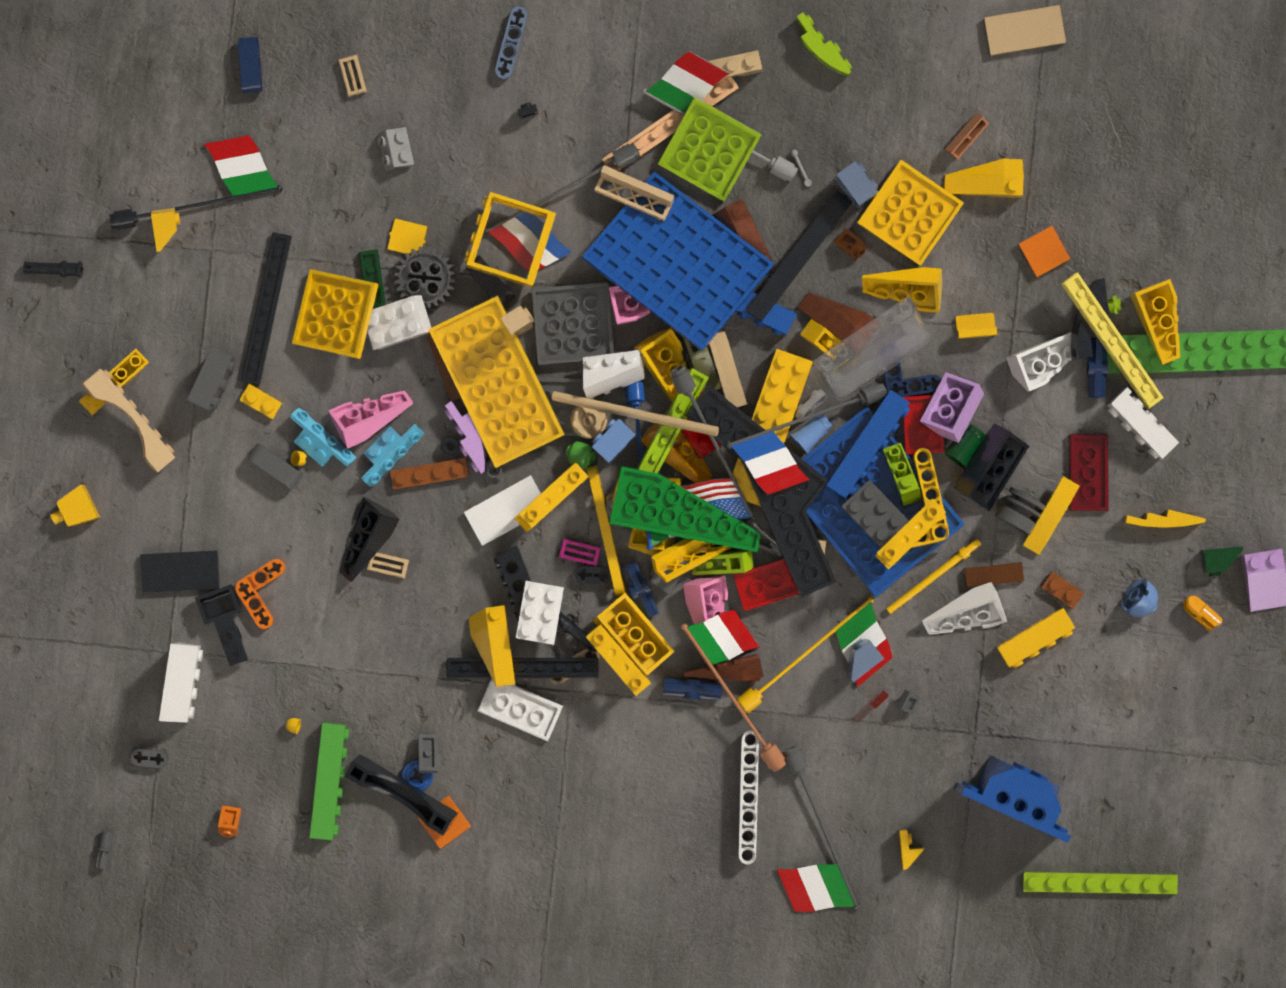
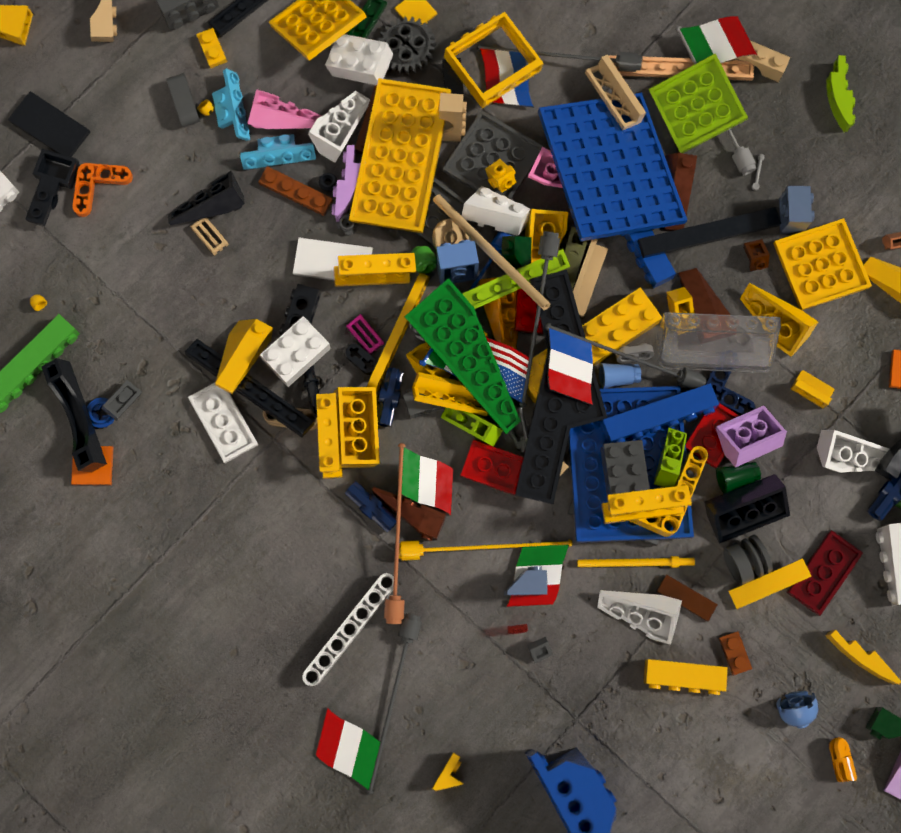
camera: 30 degrees right, 10 degrees down
(424, 395) = (335, 128): none -> white wedge
(593, 338) = (501, 175): none -> yellow brick
(654, 392) = (517, 250): none -> dark green slope
(705, 597) = (438, 441): bright pink wedge -> none

